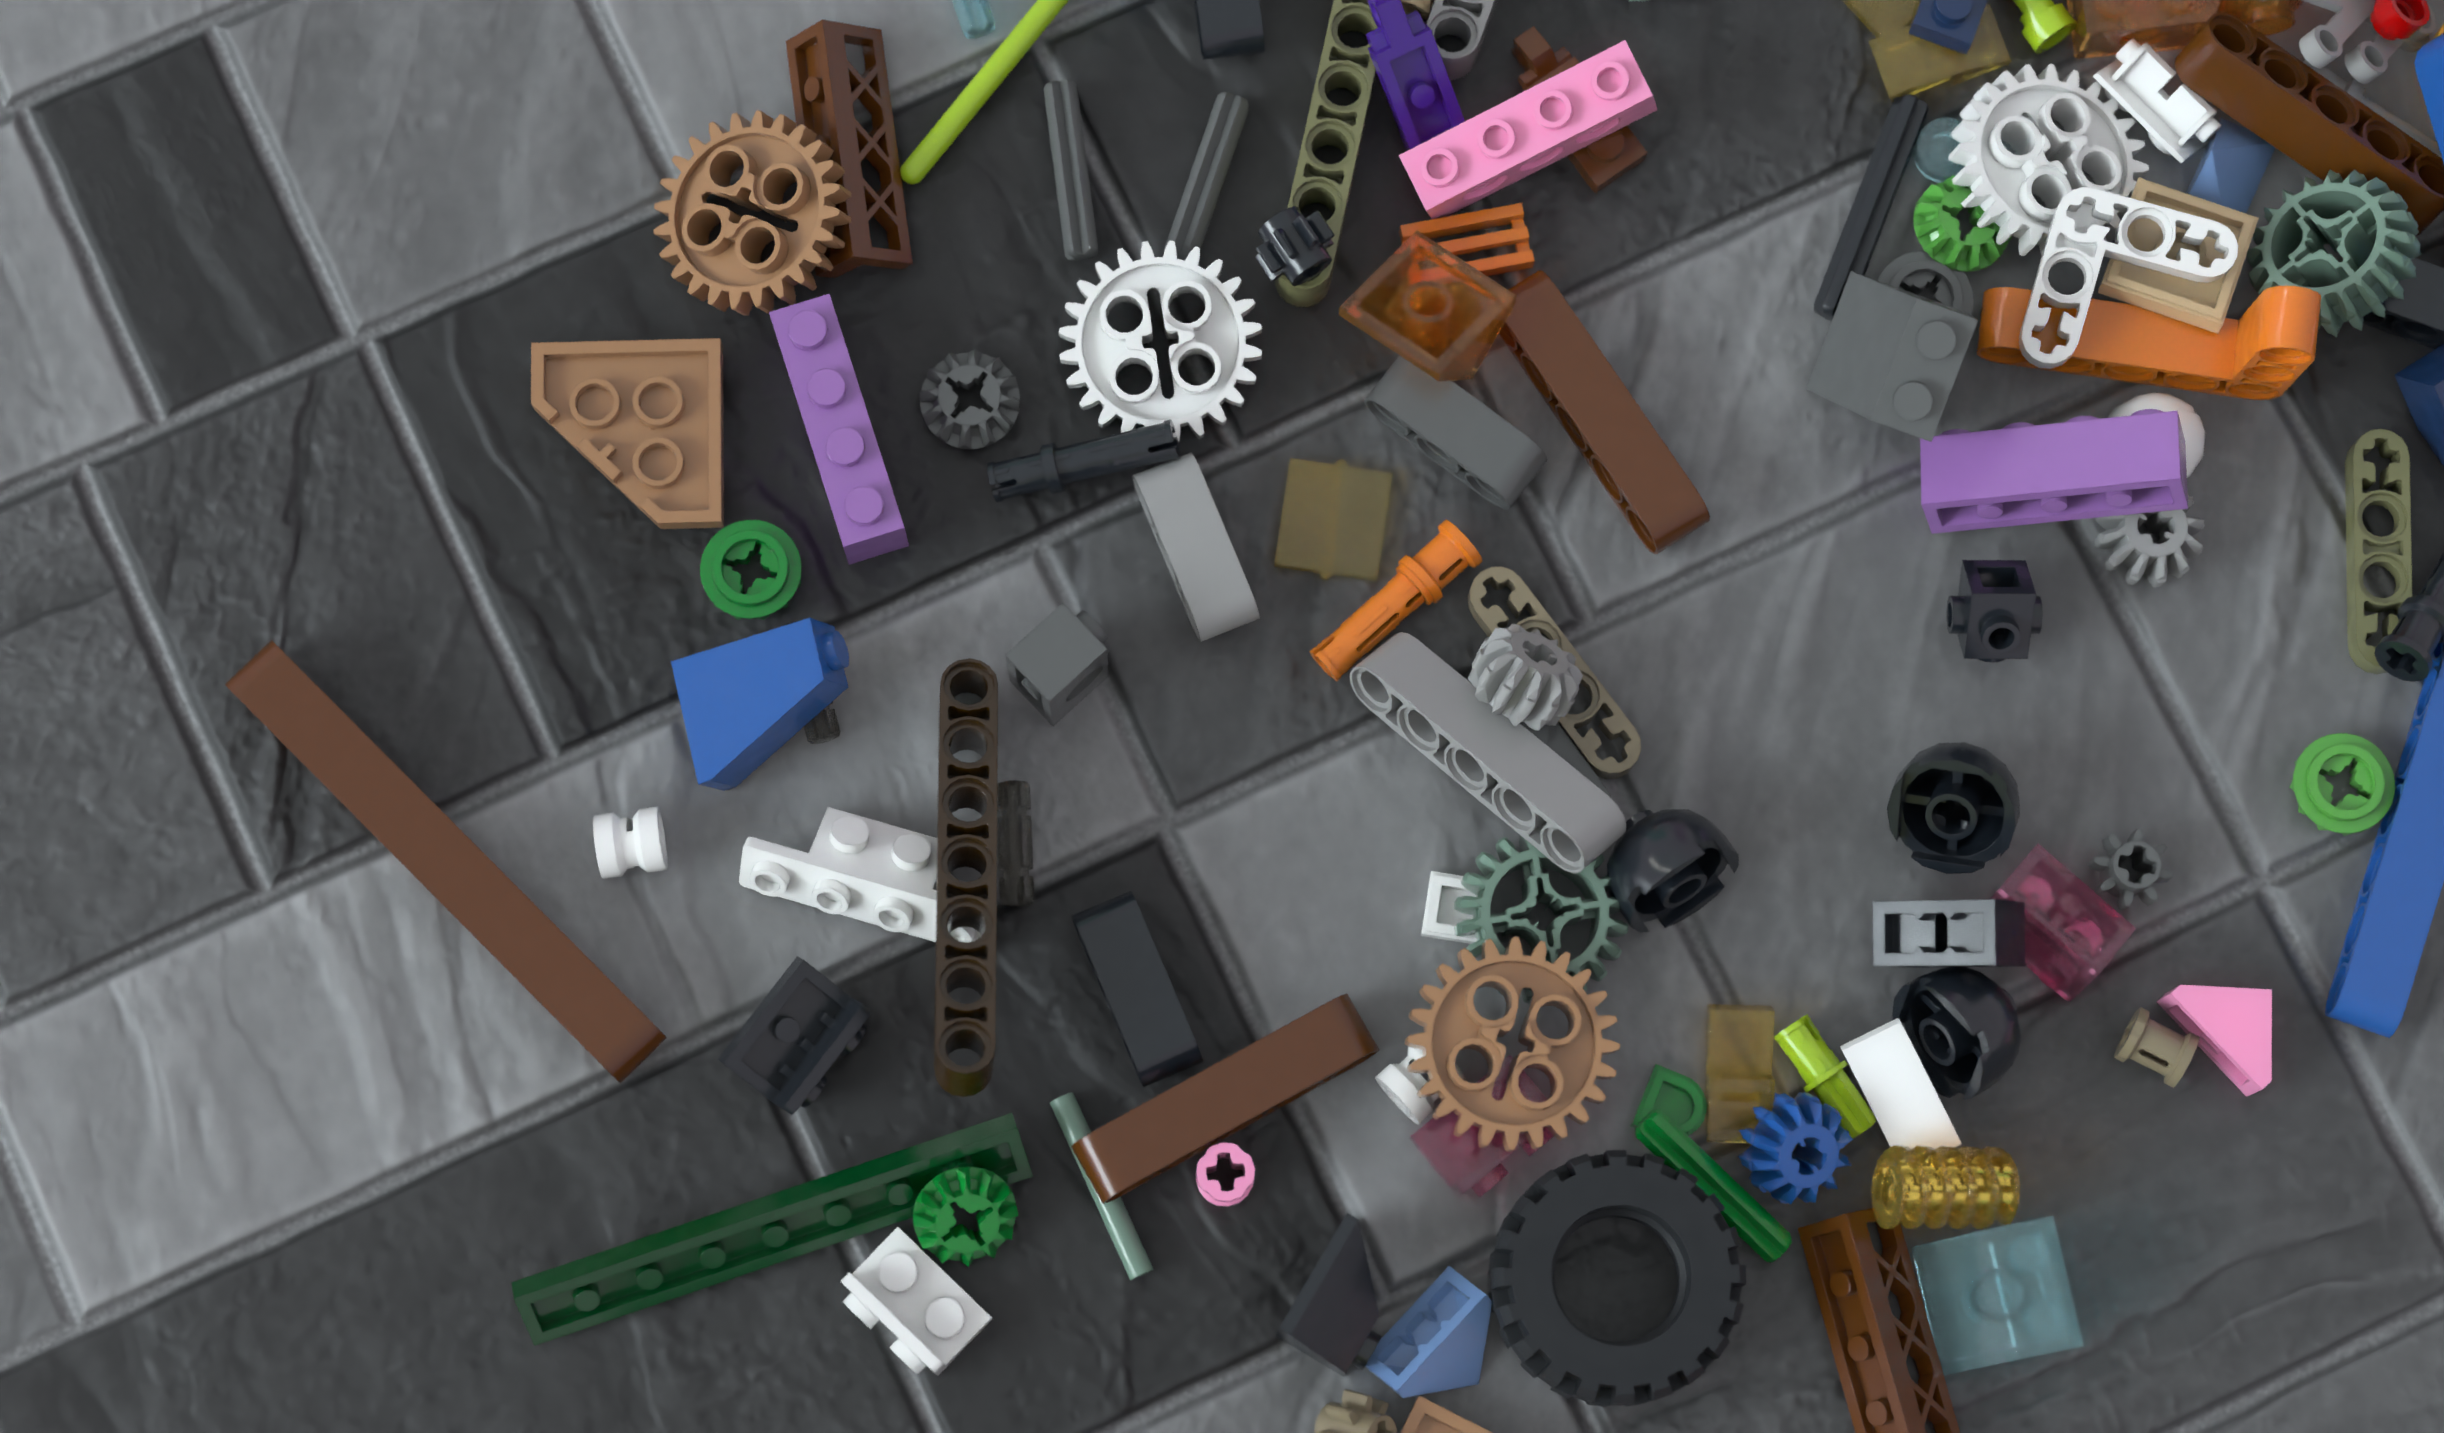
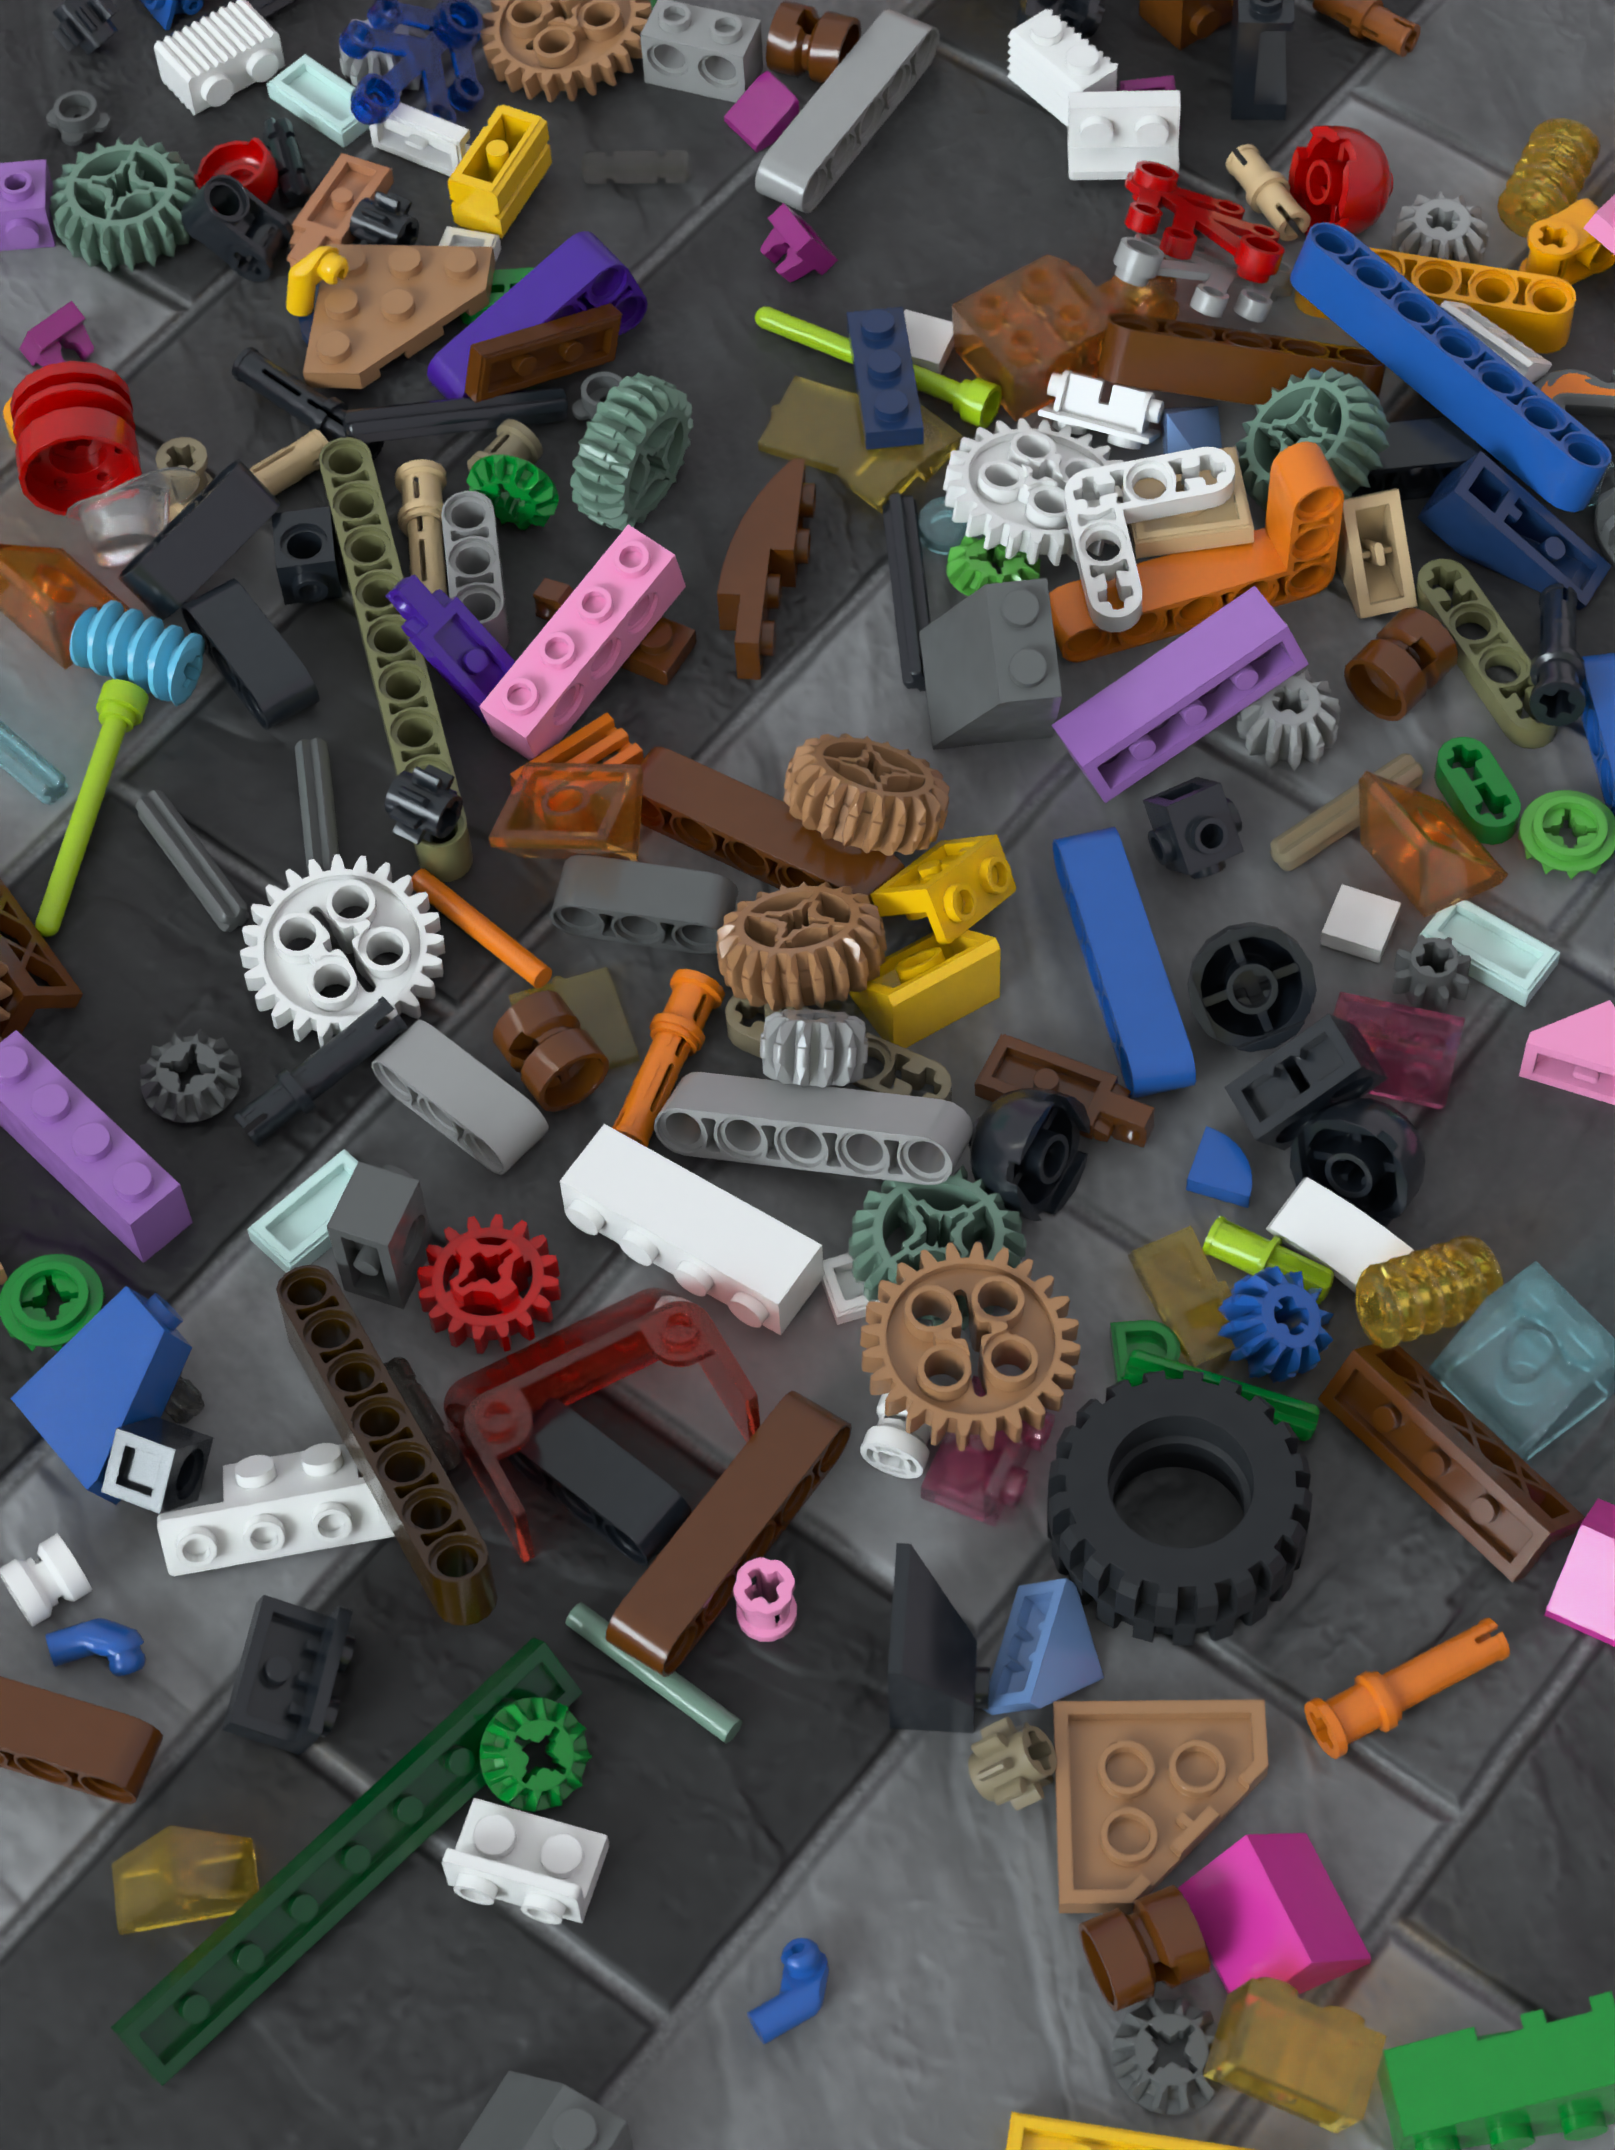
camera: 20 degrees left, 20 degrees down
(630, 1175) = (183, 1879): none -> clear yellow slope
(656, 918) = (98, 1637): none -> blue arm
(768, 787) = (157, 1464): none -> black brick
(1019, 596) = (296, 1227): none -> light aqua tile
(1092, 862) = (495, 1405): none -> clear red windscreen
(1162, 745) = (486, 1291): none -> red gear
(1295, 549) = (550, 1050): none -> reddish brown wheel
(1297, 376) = (482, 929): none -> orange bar
(1333, 792) = (691, 1230): none -> white brick
(1570, 570) = (801, 946): none -> medium nougat gear
(1668, 638) = (931, 986): none -> yellow slope
(1709, 428) = (866, 794): none -> medium nougat gear
(1714, 787) = (1108, 1105): none -> reddish brown hinge
(1738, 556) = (950, 885): none -> yellow bracket
(1748, 106) = (762, 561): none -> reddish brown slope
(1835, 962) = (1220, 1170): none -> blue tile
(1858, 711) = (1124, 963): none -> blue beam
(2098, 778) = (1360, 923): none -> white tile
(2150, 655) = (1336, 817): none -> dark tan axle
(2156, 1047) = (1541, 1101): dark tan bush -> none
(2201, 736) = (1423, 845): none -> clear orange slope
(2201, 863) = (1499, 952): none -> light aqua tile
(2294, 528) = (1401, 664): none -> reddish brown wheel
(2299, 694) = (1487, 785): none -> green beam
(2330, 400) = (1375, 554): none -> tan slope

